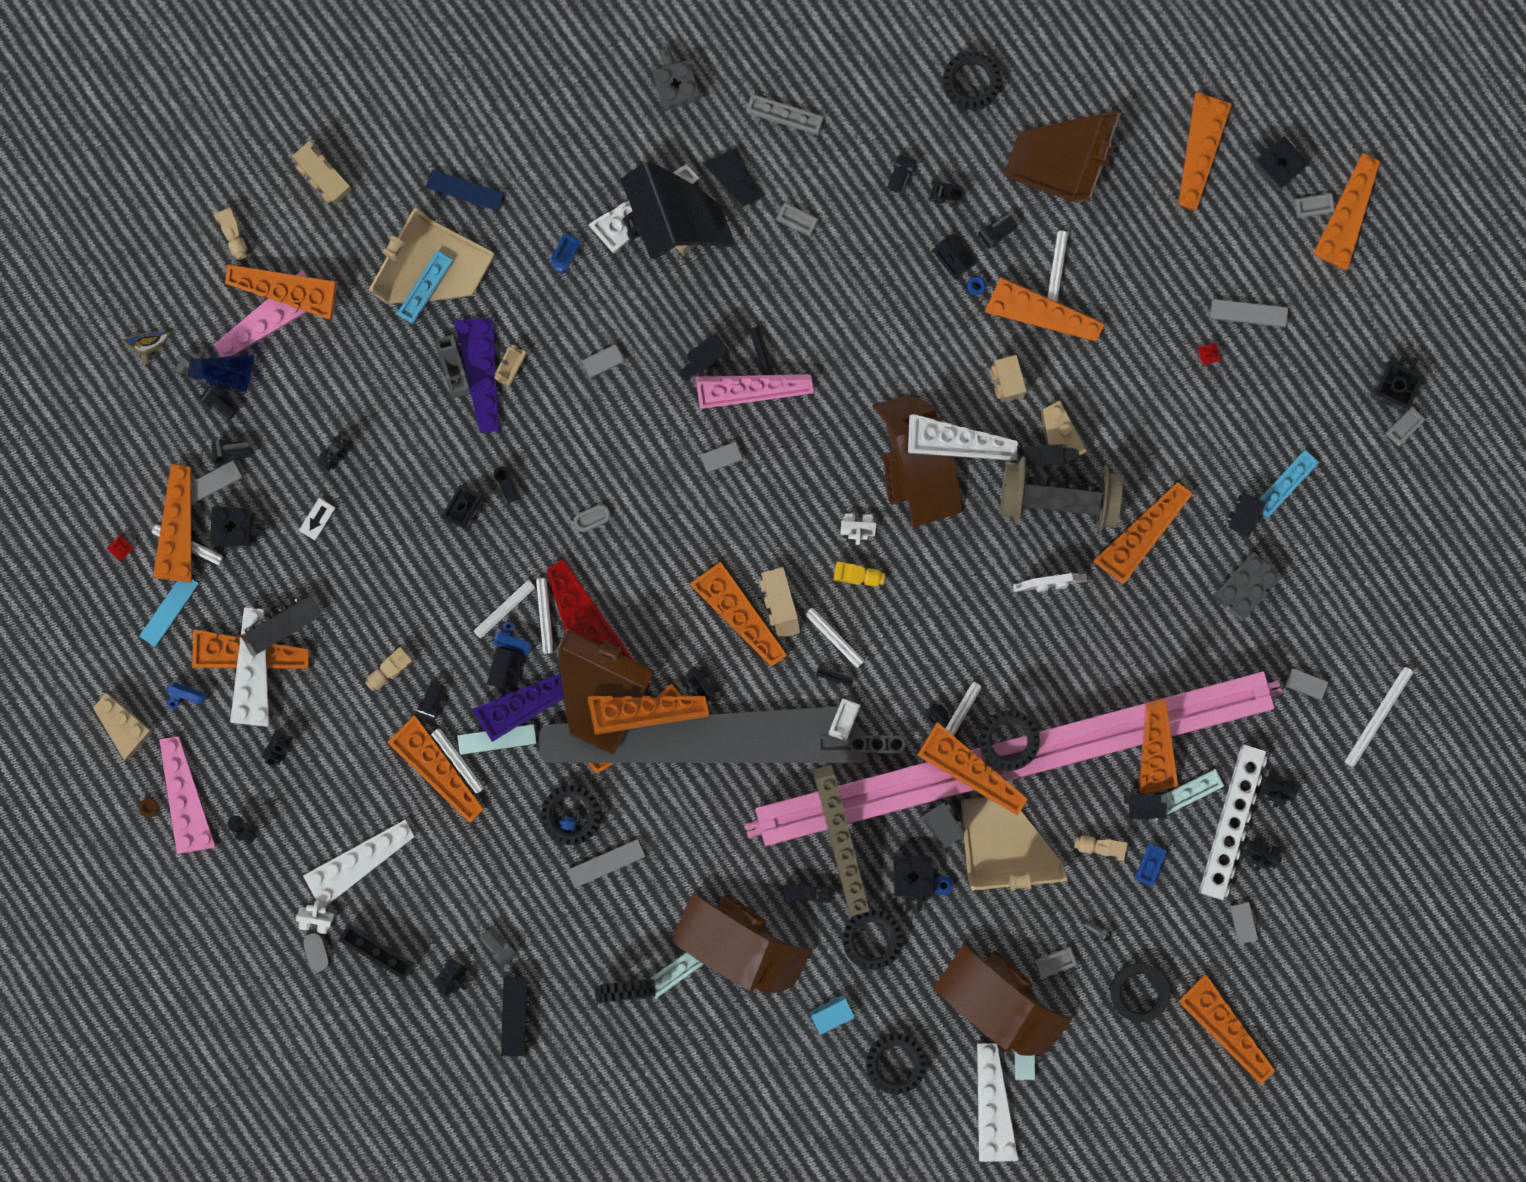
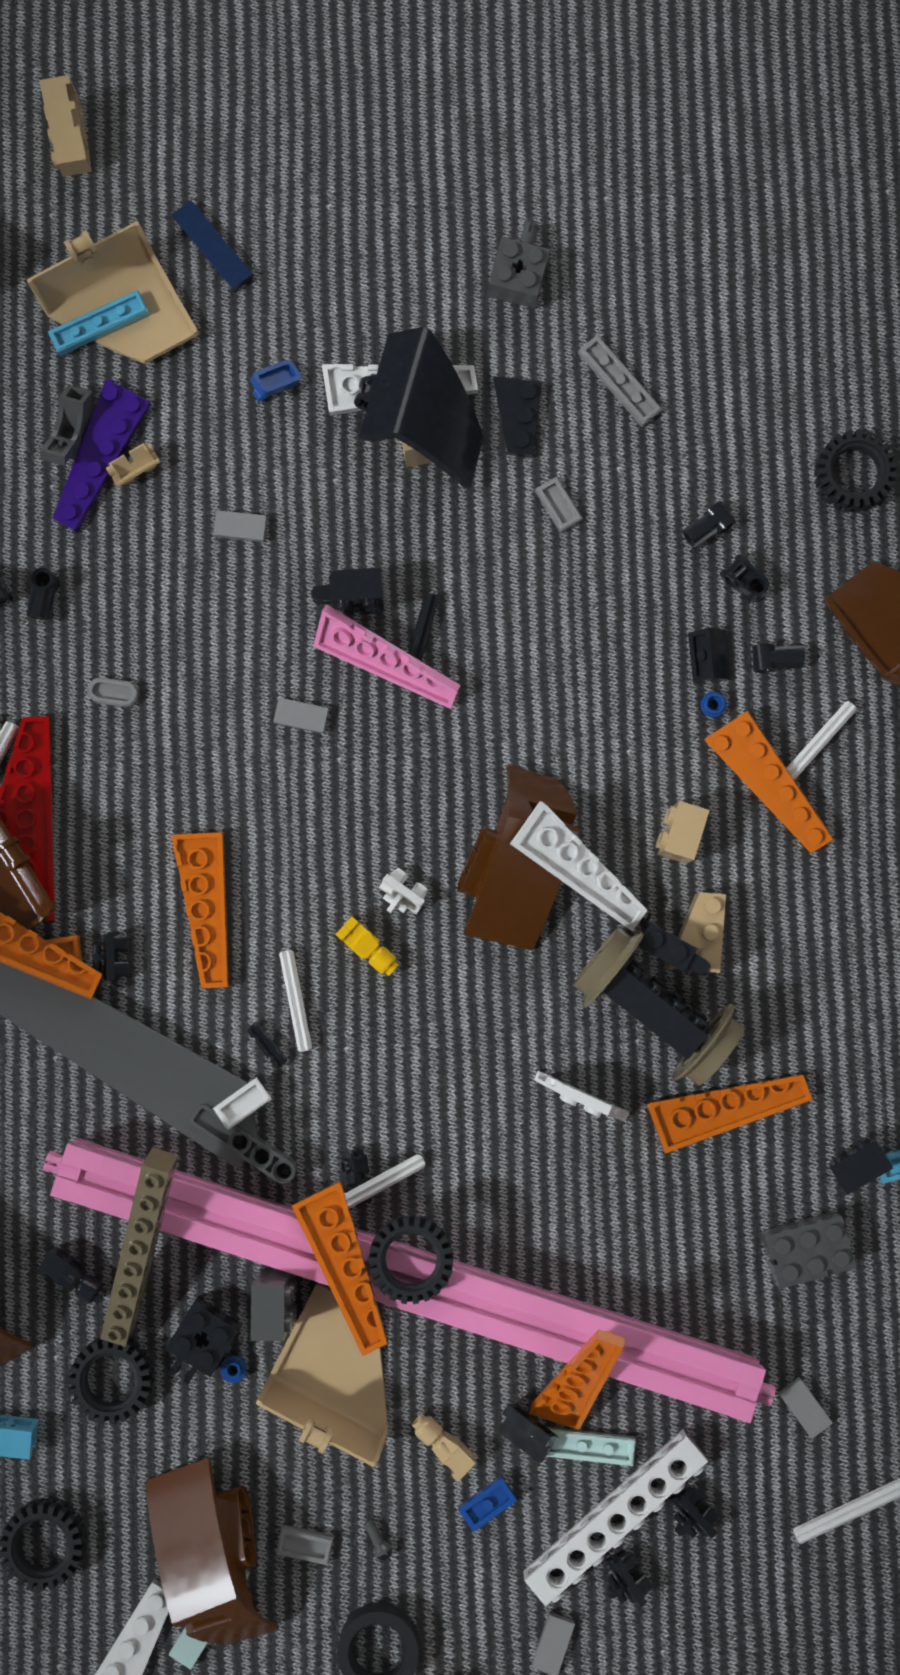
camera: 40 degrees right, 0 degrees up
(780, 602) = (257, 921): tan wedge -> none

